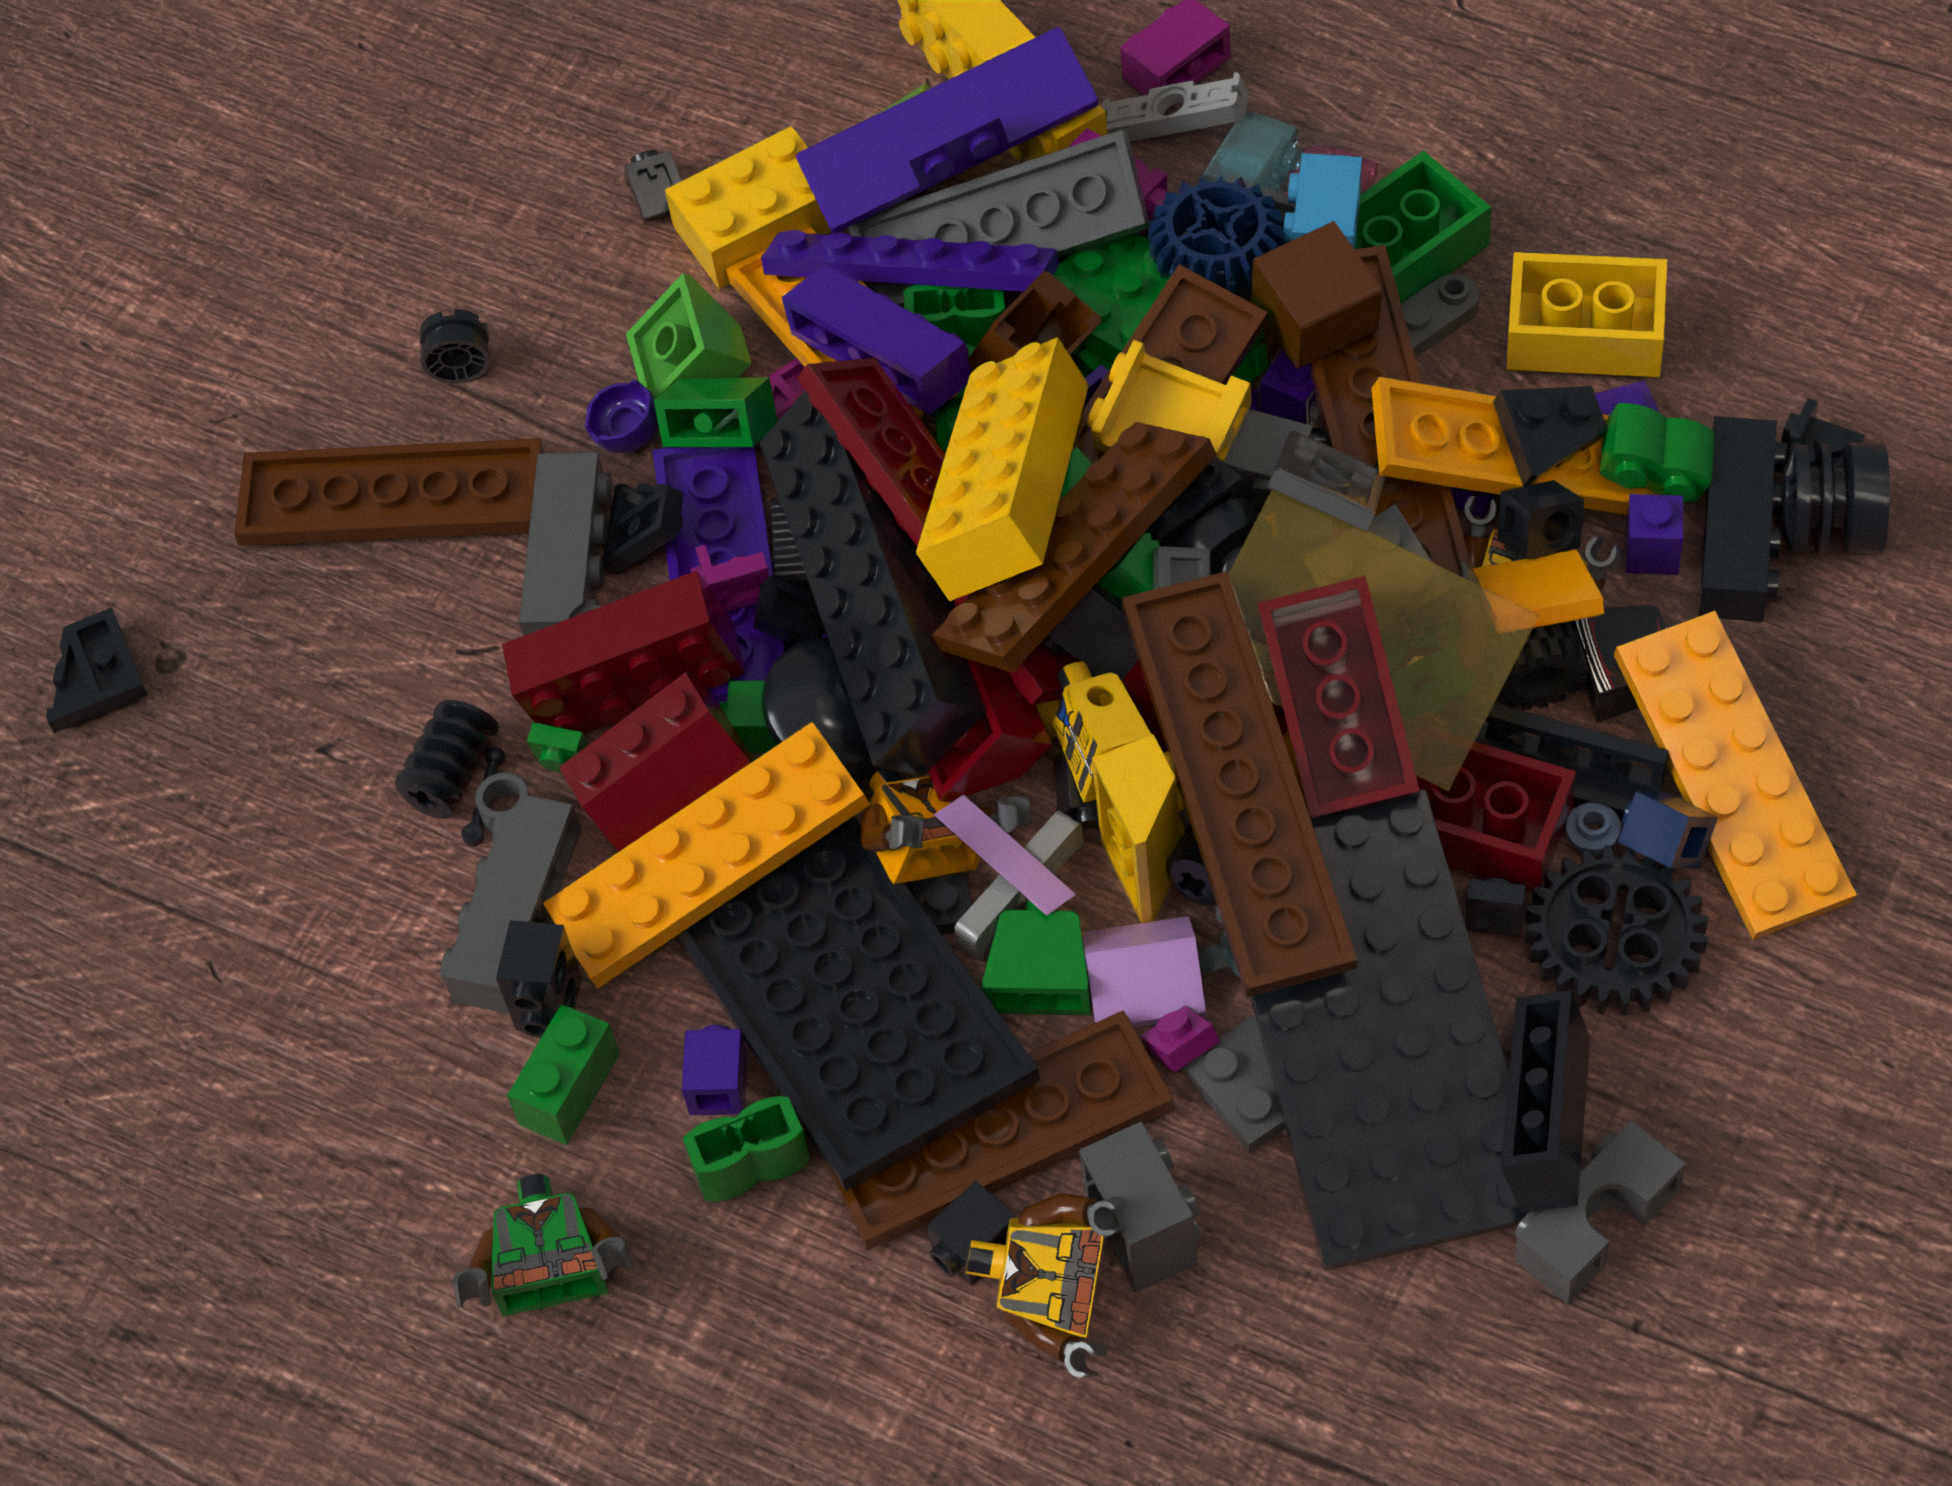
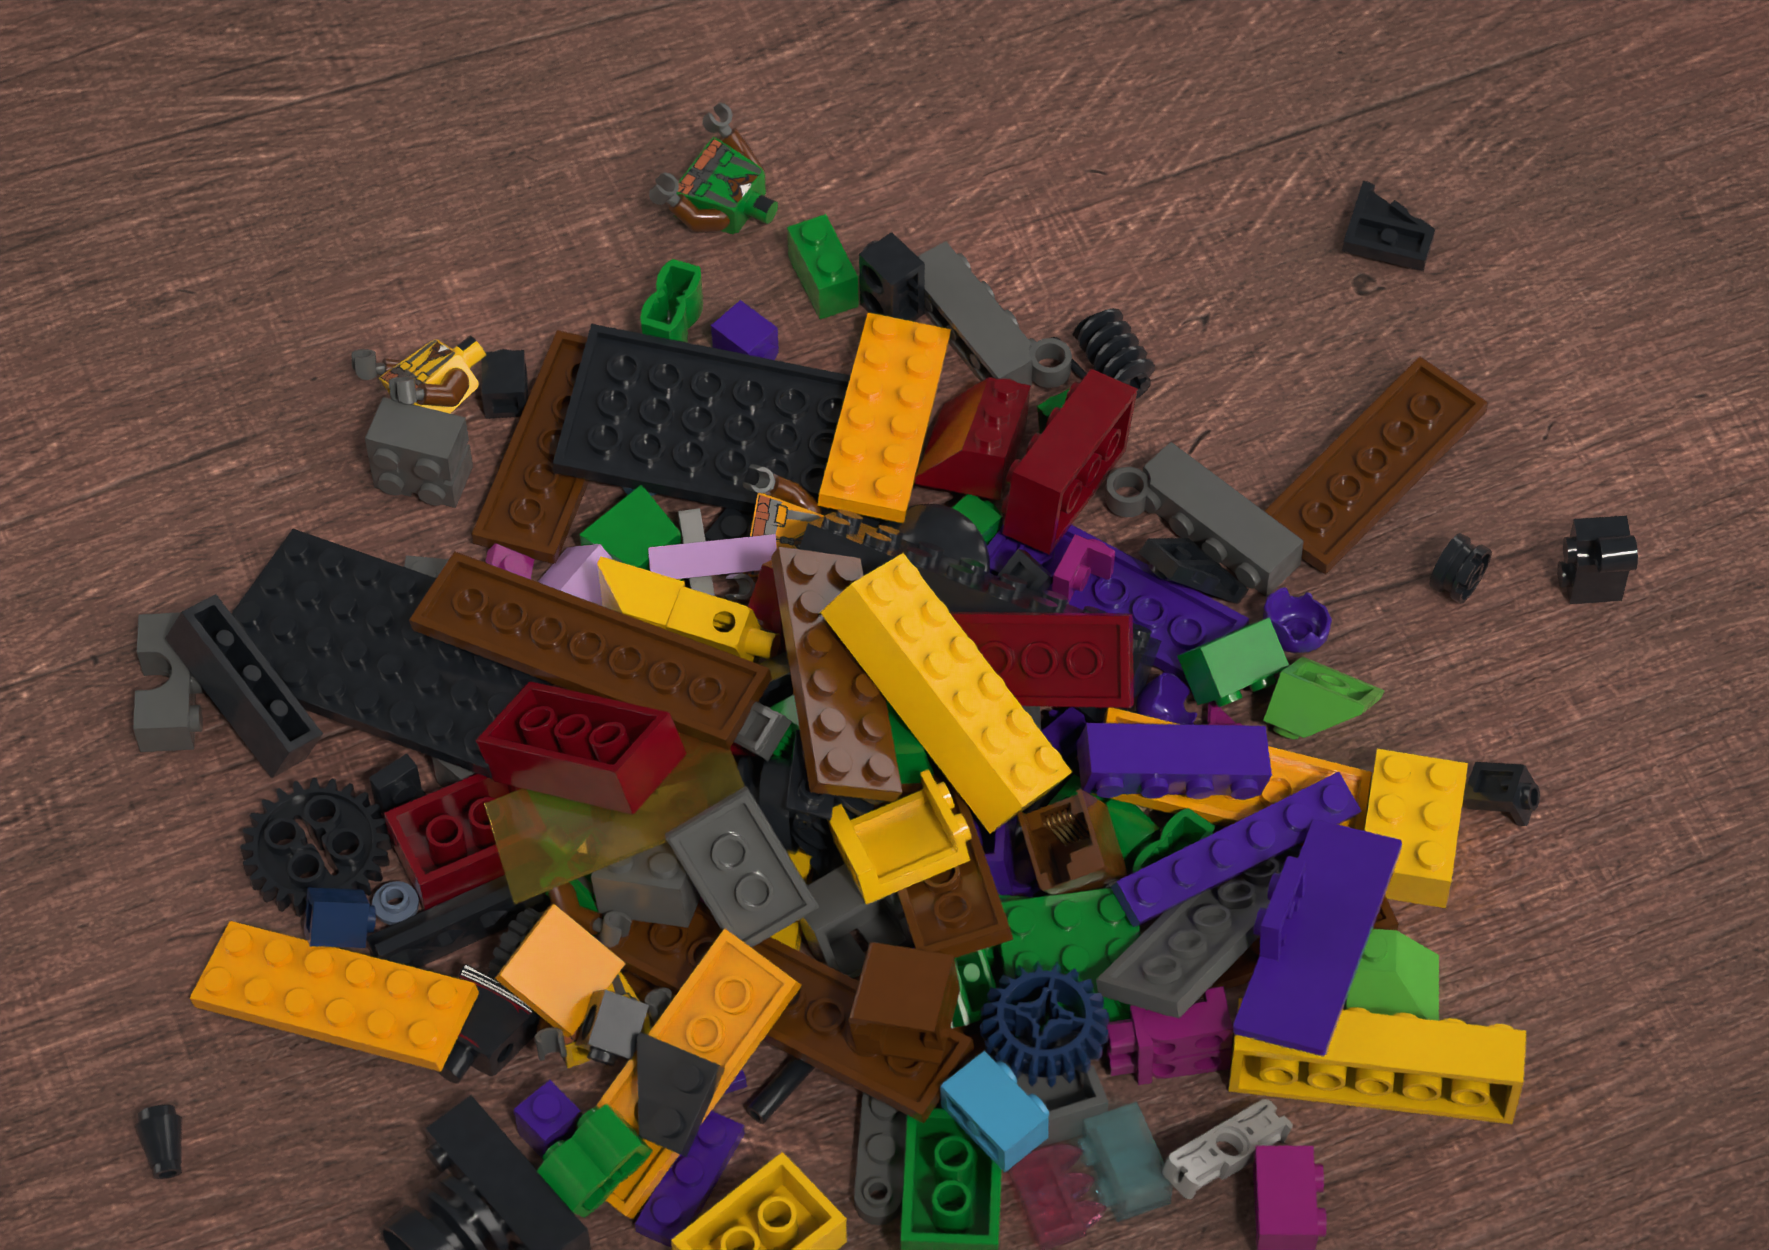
camera: 125 degrees right, 0 degrees up
(358, 247) = (1597, 559): none -> black hinge

